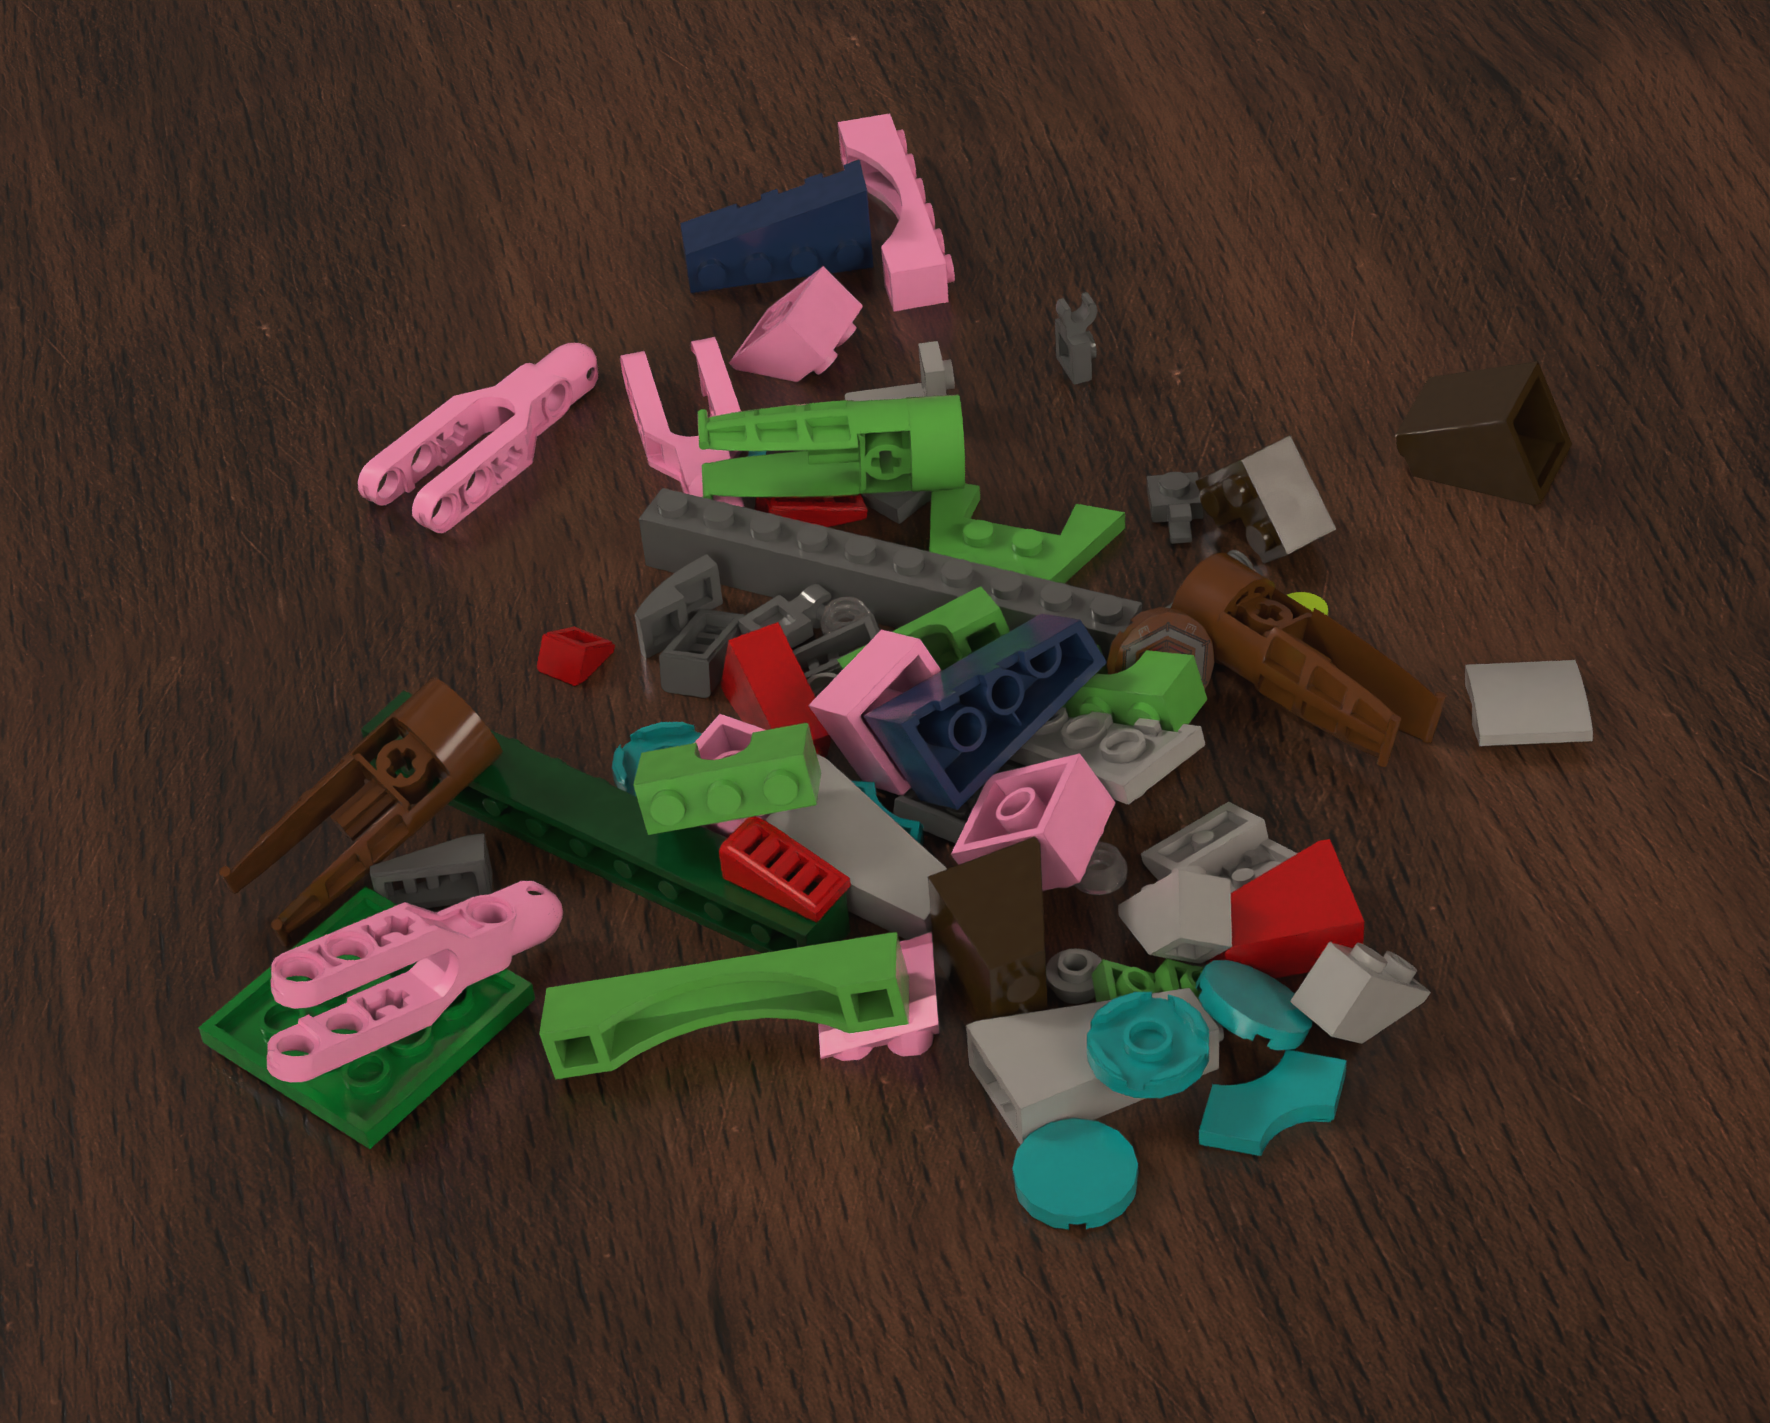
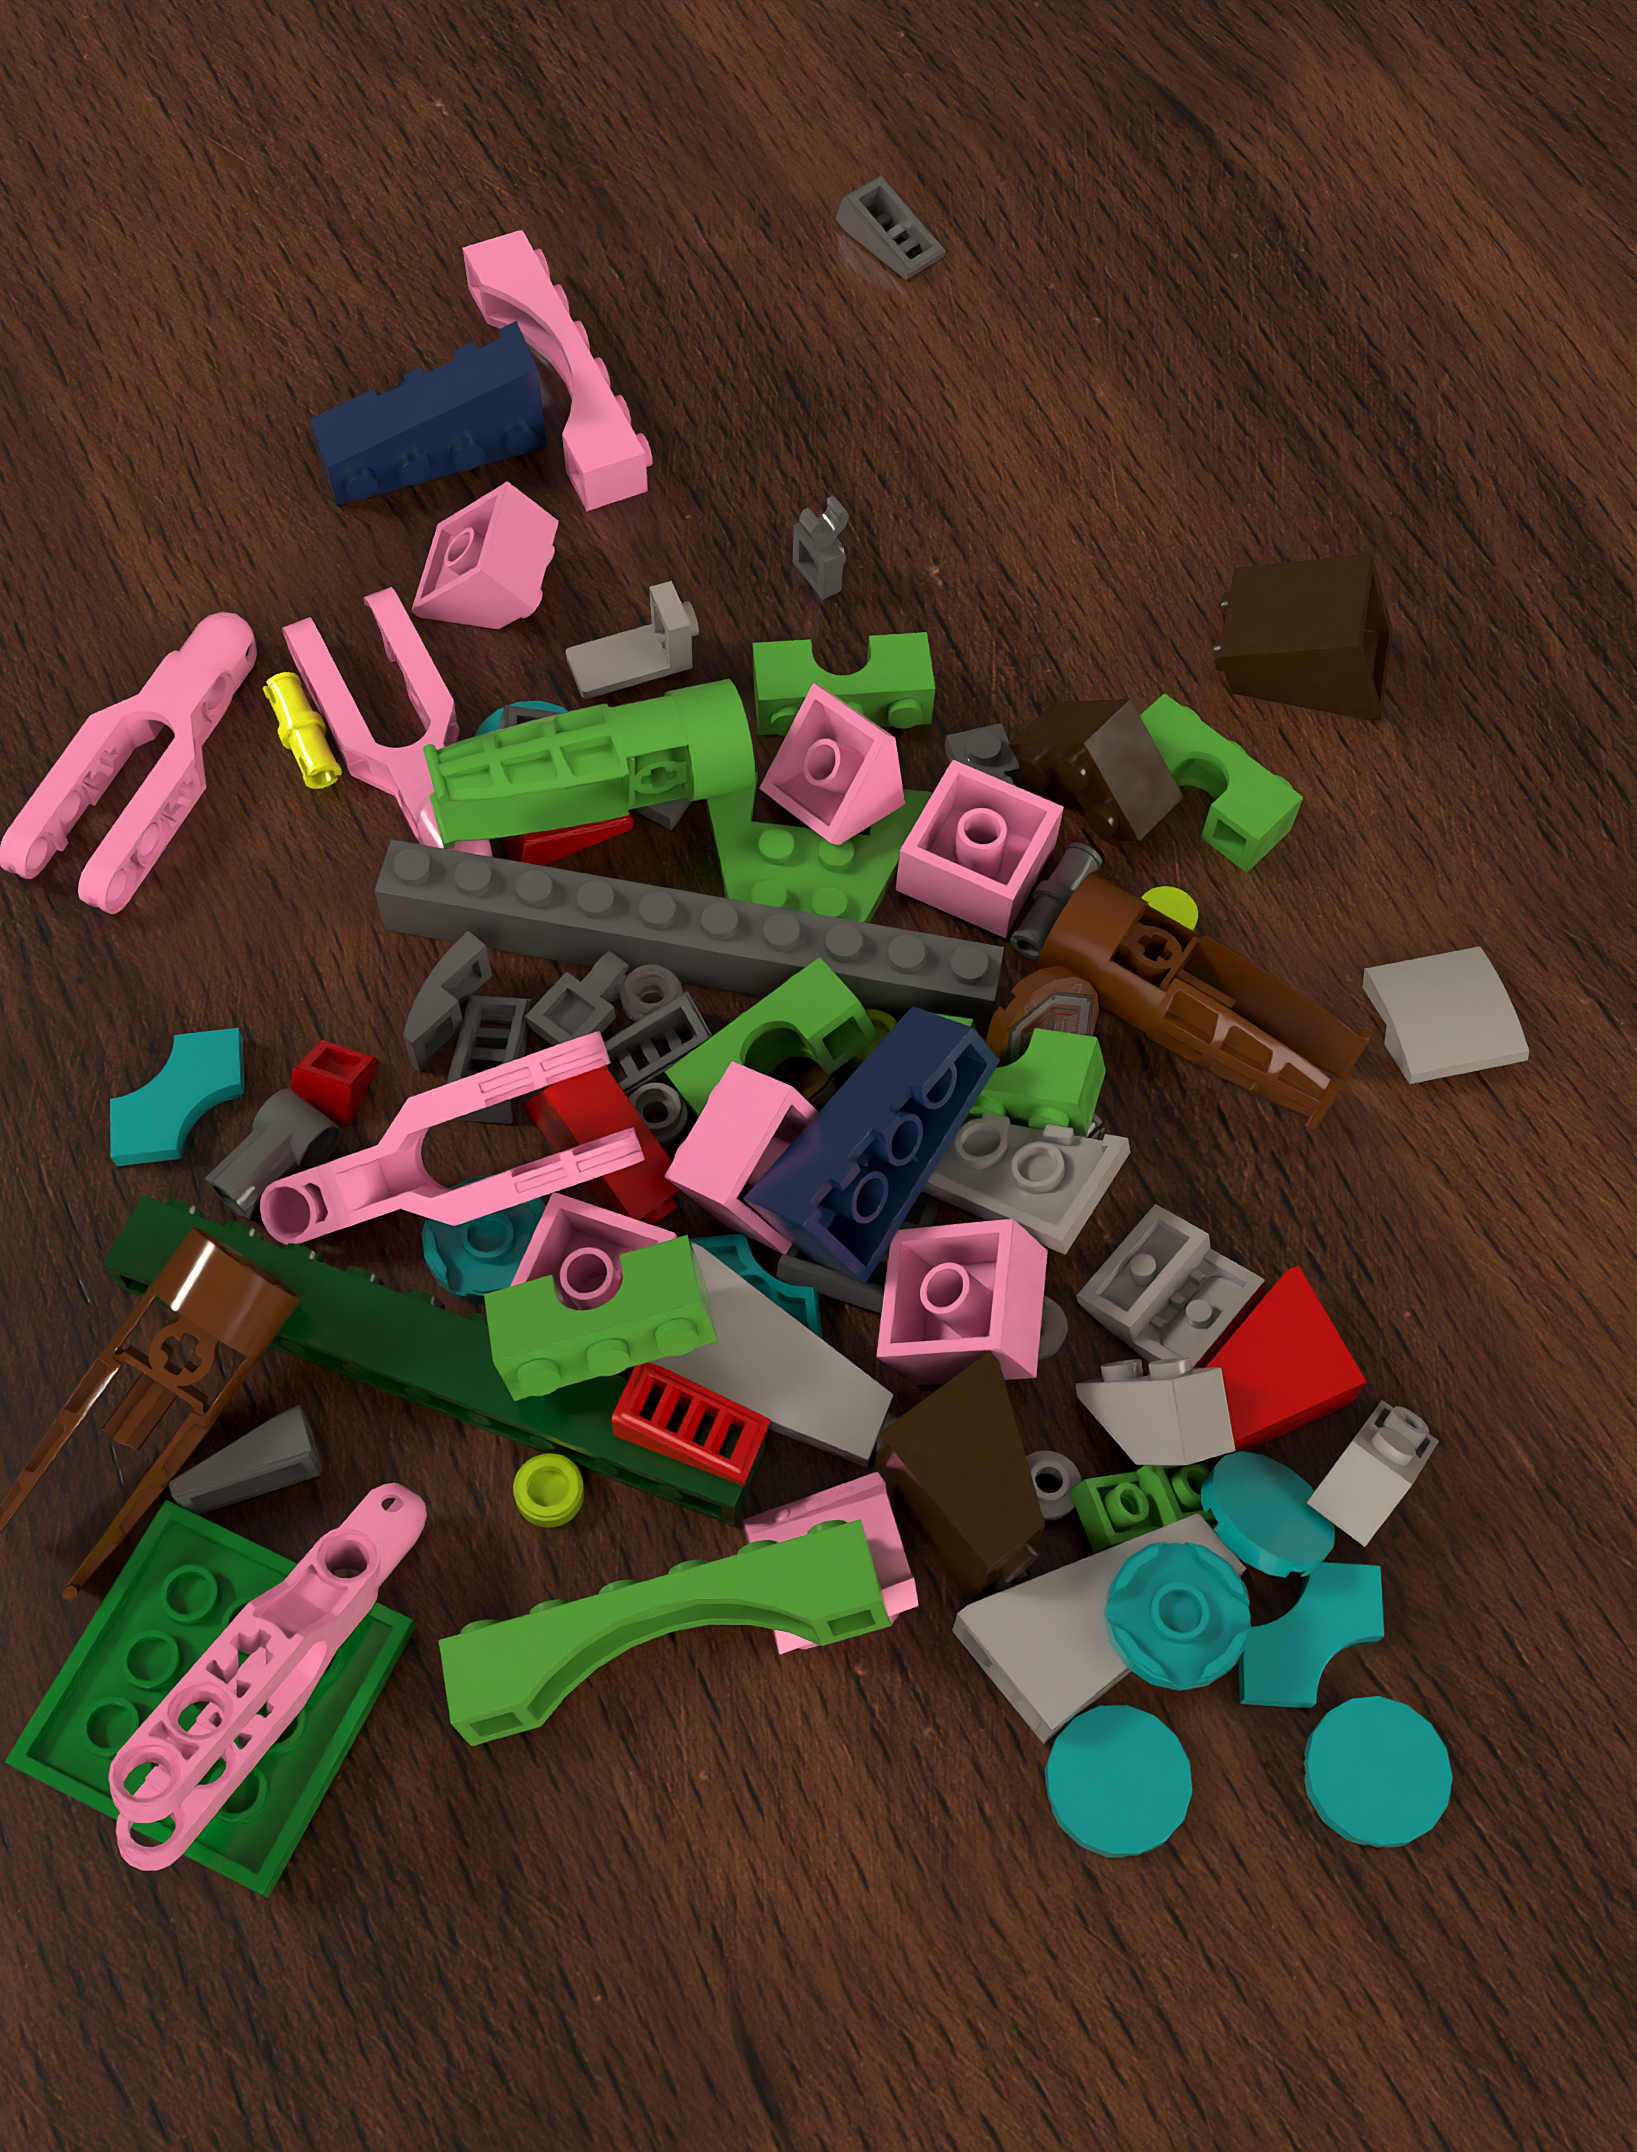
camera: 20 degrees left, 20 degrees up
(467, 640) = (158, 1117): none -> teal tile
(525, 679) = (284, 1139): none -> dark grey piece
(594, 695) = (394, 1174): none -> bright pink piece
(617, 427) = (302, 730): none -> neon yellow pin
(666, 929) = (548, 1490): none -> lime tile
(1041, 480) = (835, 769): none -> bright pink slope
(1101, 442) = (890, 690): none -> bright green arch
(1143, 542) = (978, 848): none -> bright pink brick
(1201, 116) = (879, 198): none -> dark grey slope
(1301, 1199) = (1377, 1772): none -> teal tile
(1389, 540) = (1250, 802): none -> bright green arch

